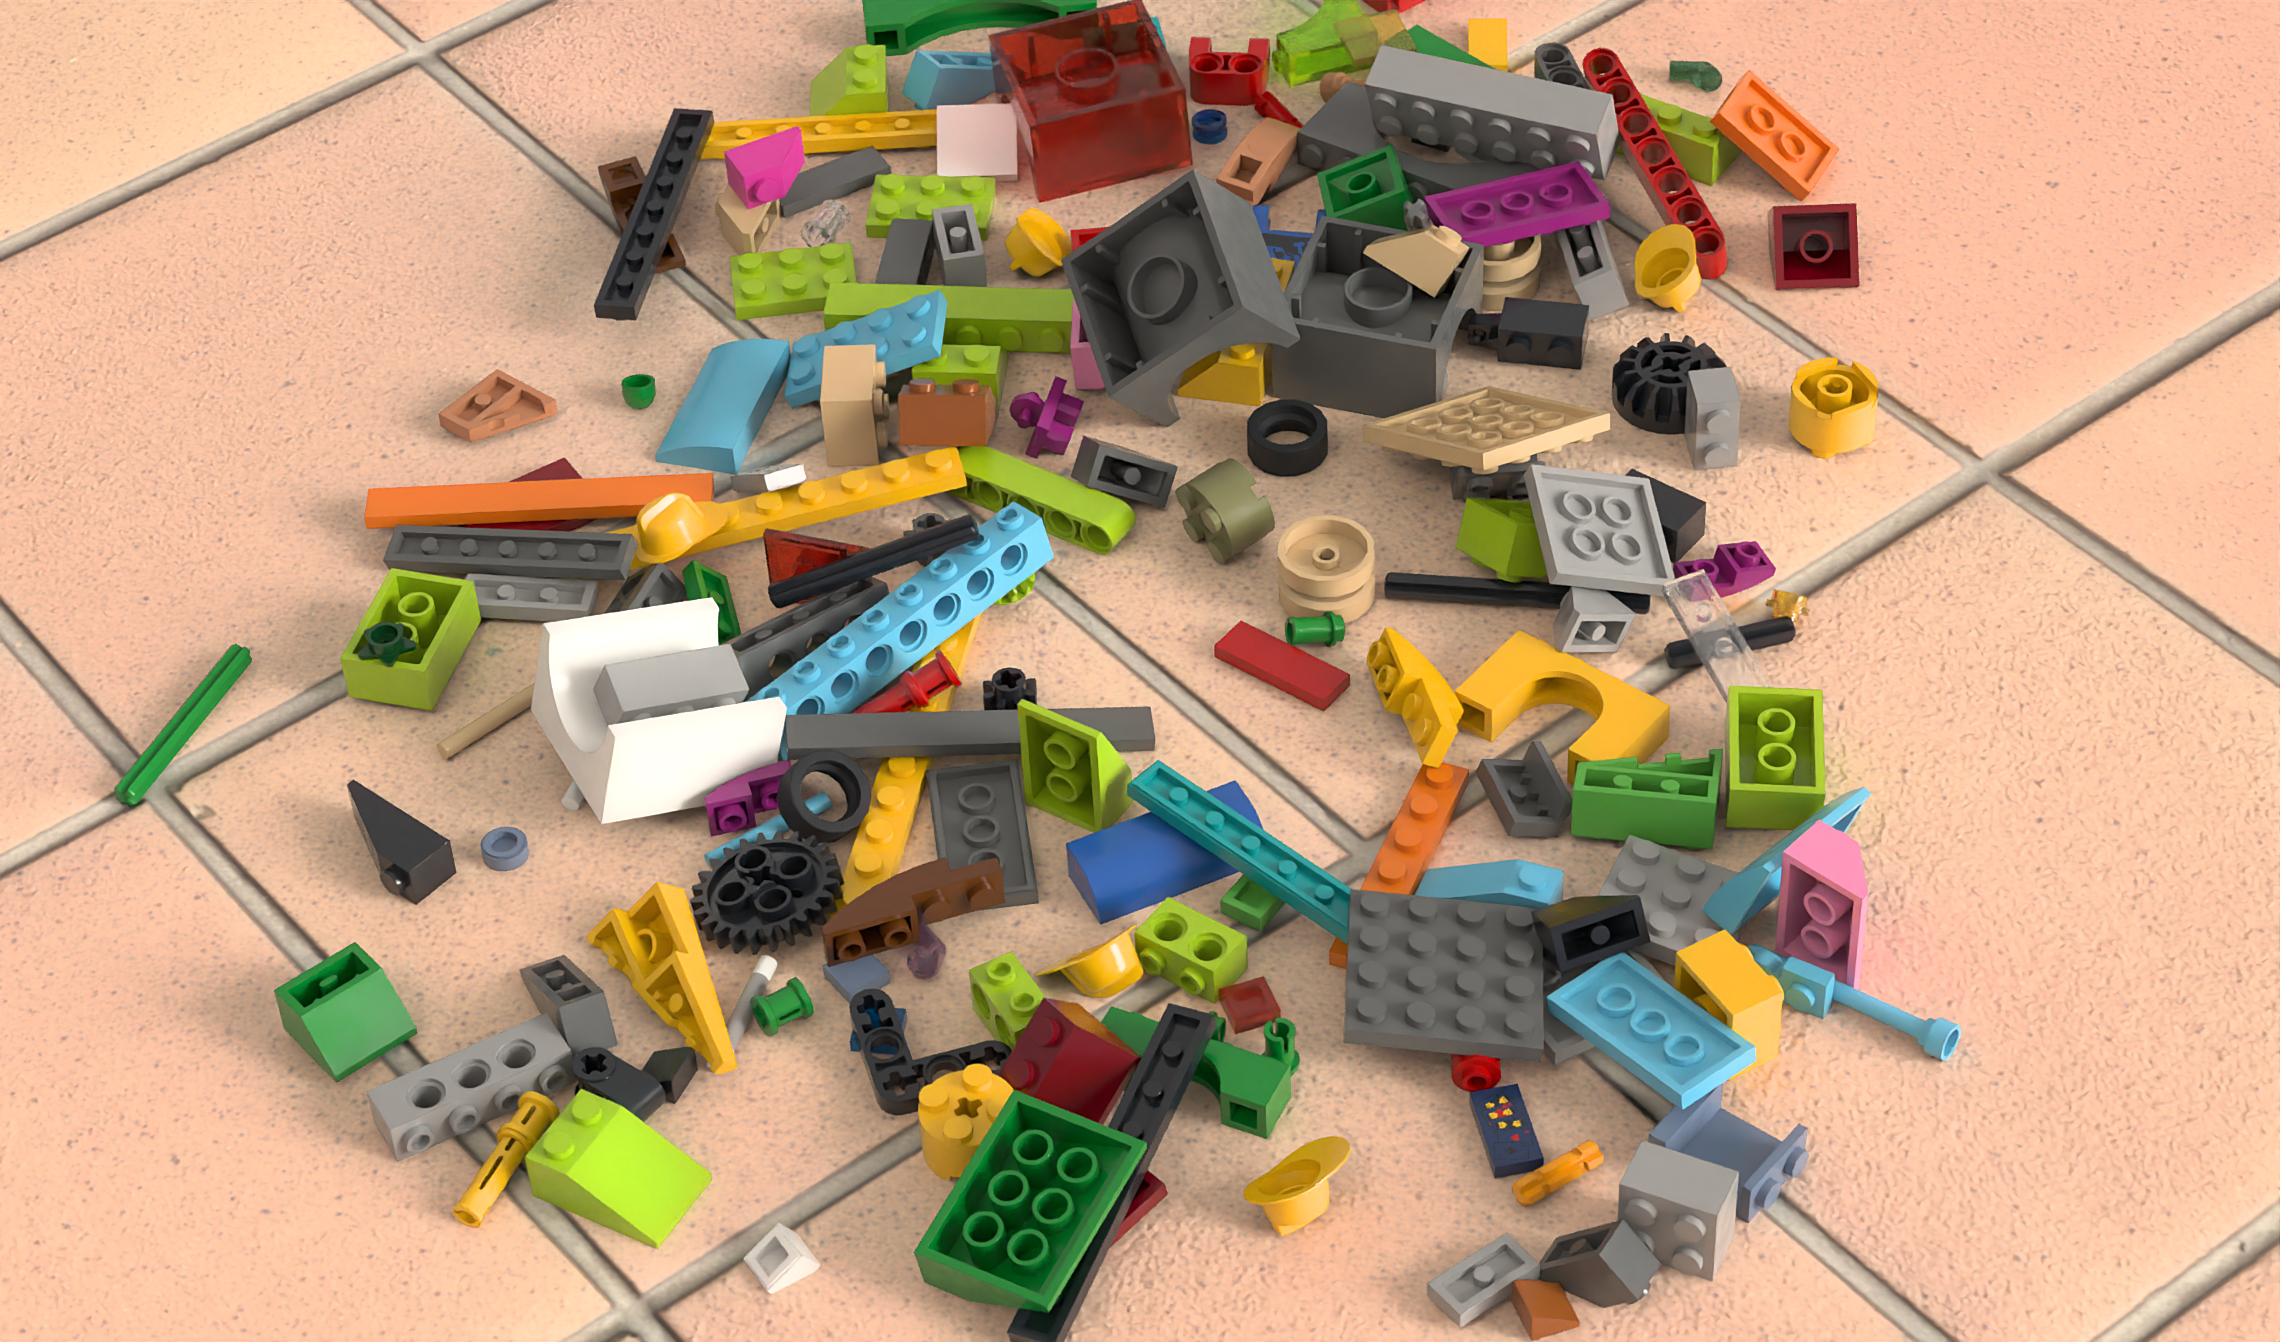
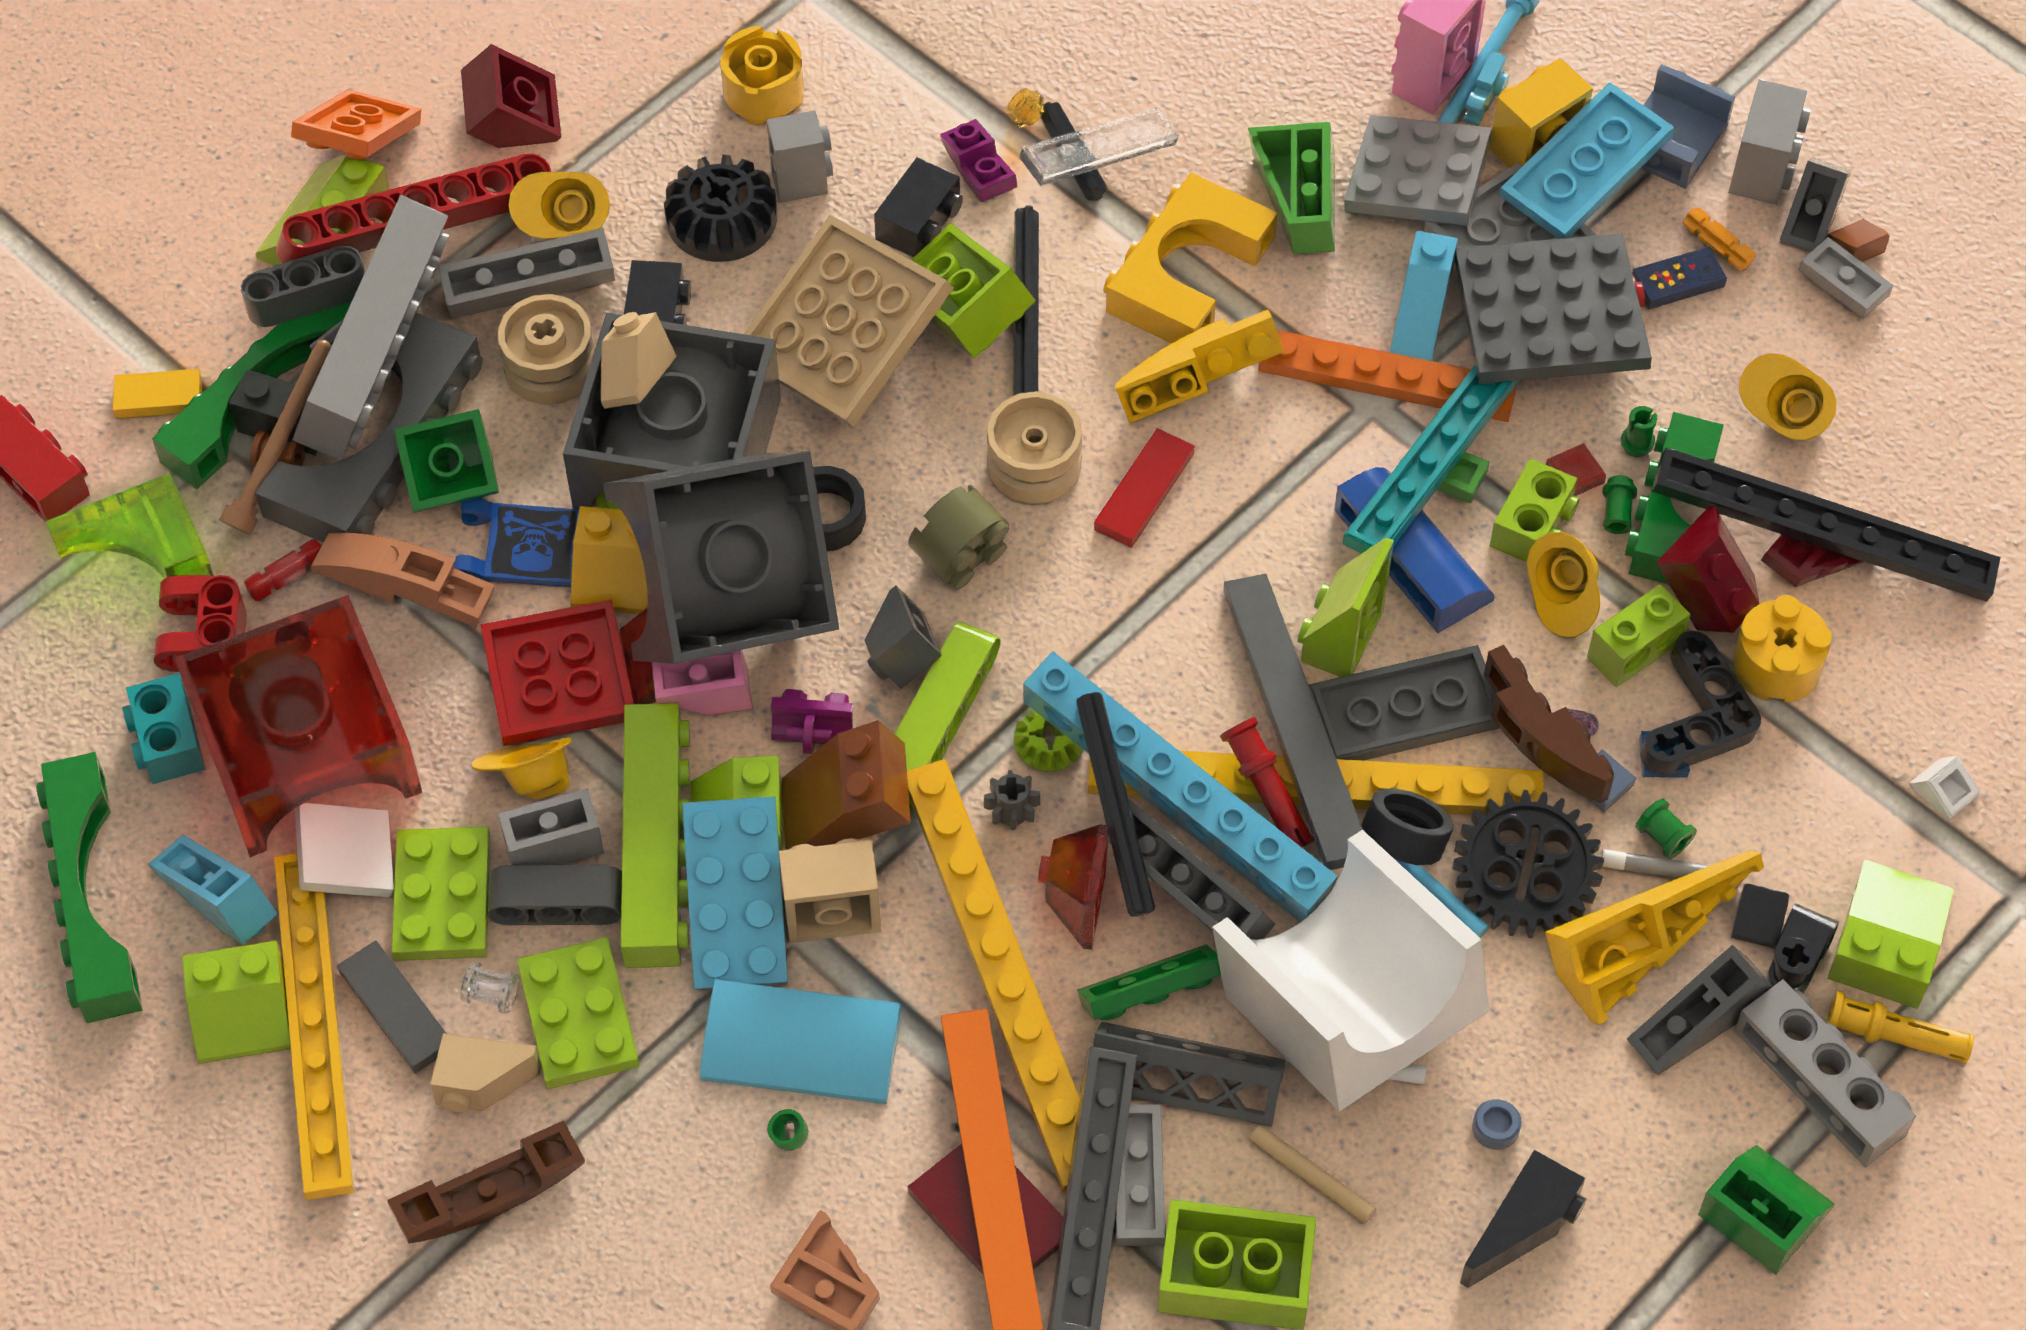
camera: 100 degrees left, 15 degrees up
(386, 643) = (1288, 1249): dark green plate -> none
(654, 215) = (501, 1152): black plate -> none
(670, 684) = (1331, 955): brick -> none
(674, 525) = (1049, 1020): yellow piece -> none
(765, 167) = (441, 1032): dark pink slope -> none
(768, 478) = (944, 959): tile -> none
(1008, 689) = (1228, 698): black gear -> none
(1026, 1206) = (1889, 573): green slope -> none
(1318, 629) = (1098, 453): green pin -> none
(1365, 35) = (181, 471): clear yellow piece -> none
(1416, 215) = (555, 381): dark grey axle -> none
(1520, 205) = (520, 303): magenta plate -> none
(1527, 793) = (1296, 278): dark grey bracket -> none
(1589, 929) = (1492, 207): black slope -> none
(1591, 621) = (1083, 240): light grey slope -> none
(1598, 530) = (993, 217): light grey plate -> none
(1699, 73) = (214, 207): clear green arm -> none
(1760, 881) = (1380, 73): medium azure slope -> none
(1773, 757) = (1234, 91): lime brick -> none

